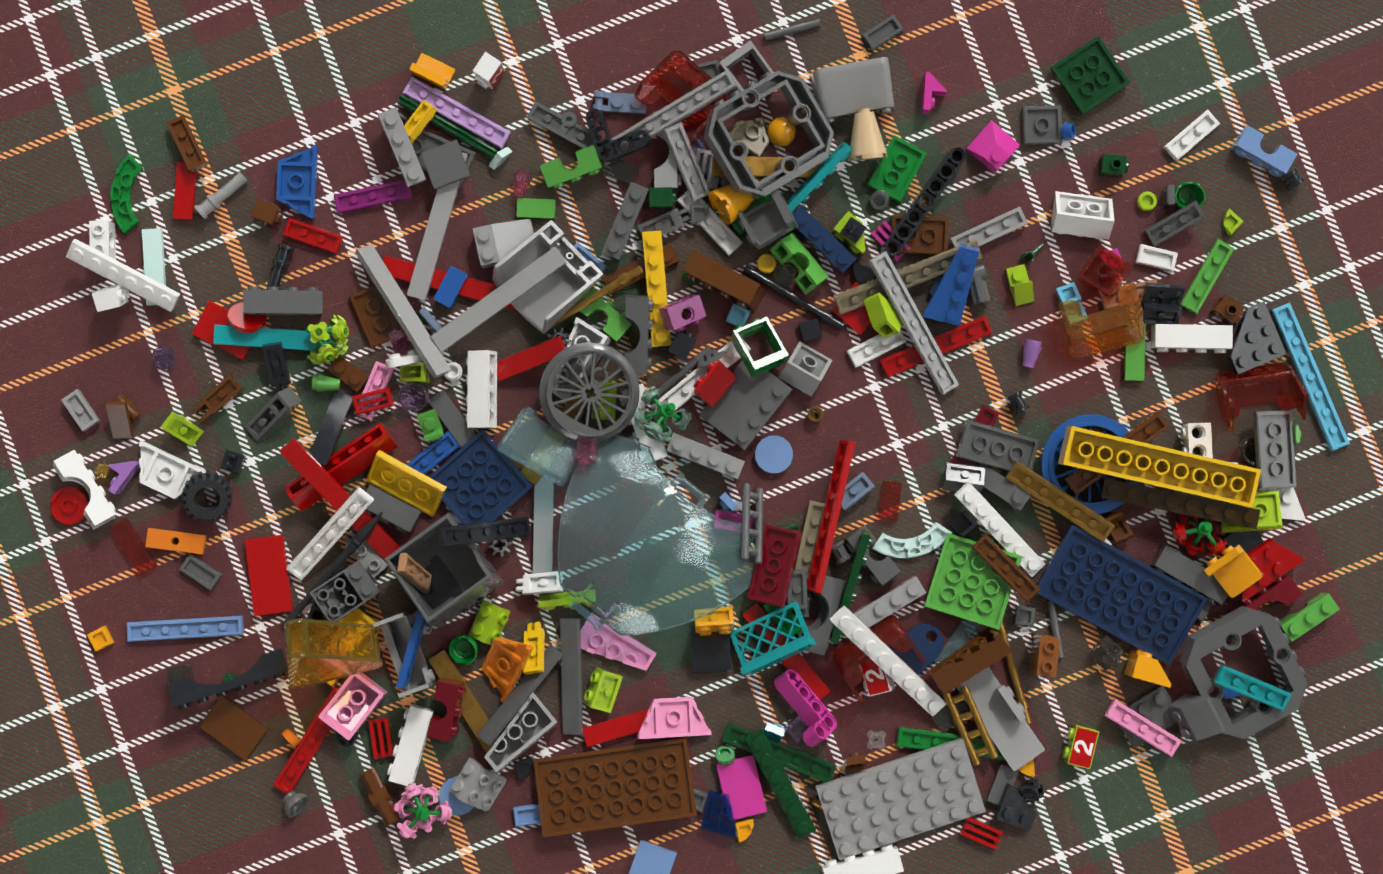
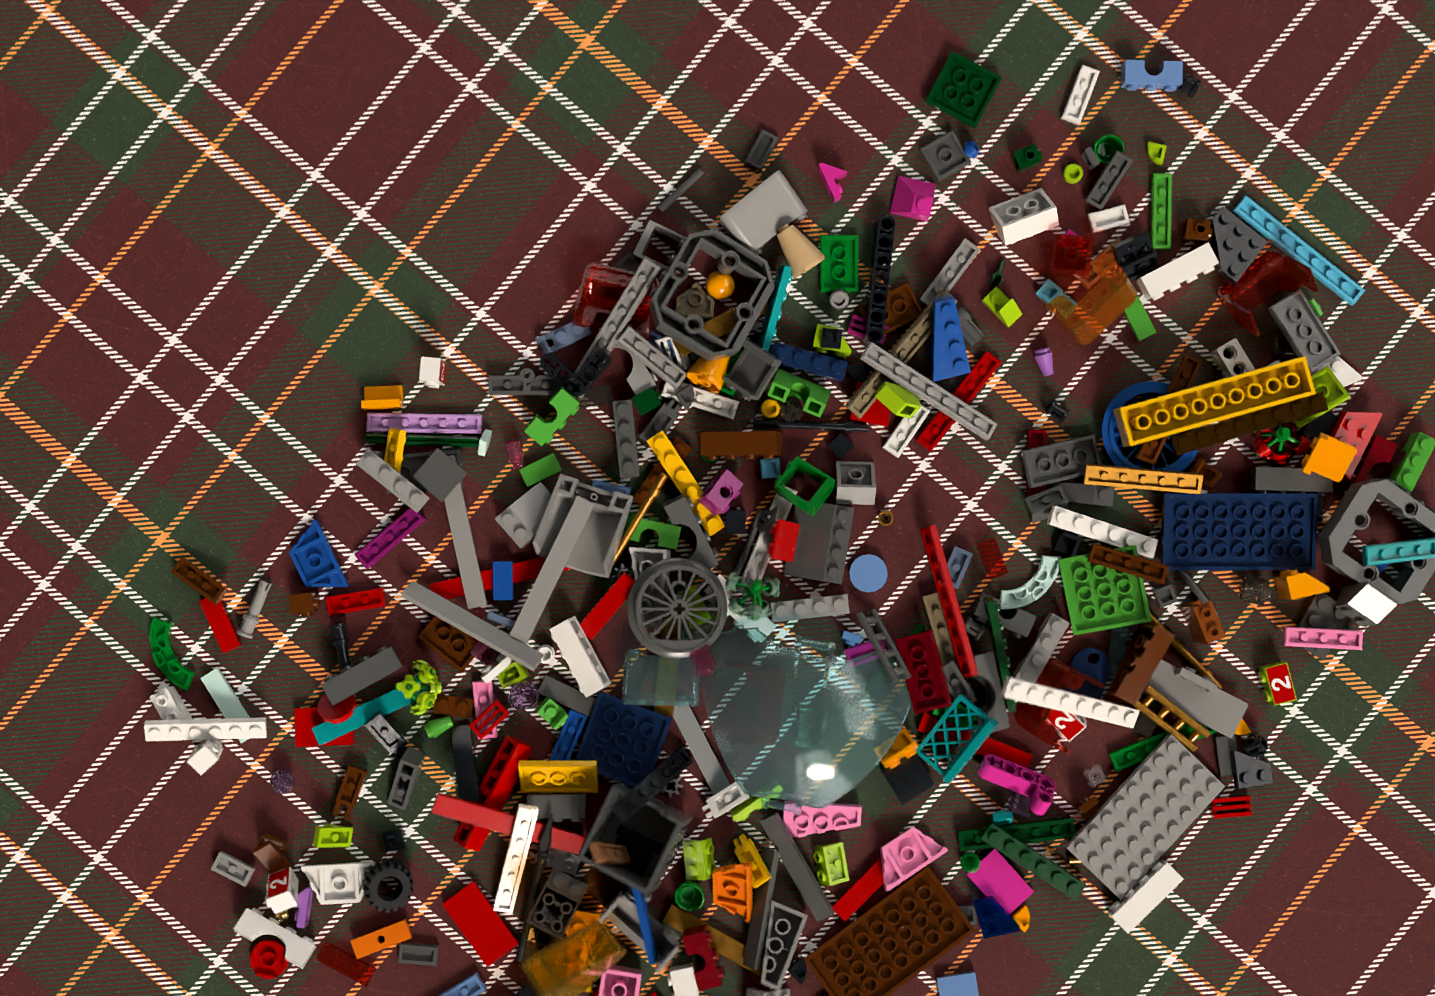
camera: 30 degrees left, 0 degrees up
(113, 451) = (282, 890): none -> white brick

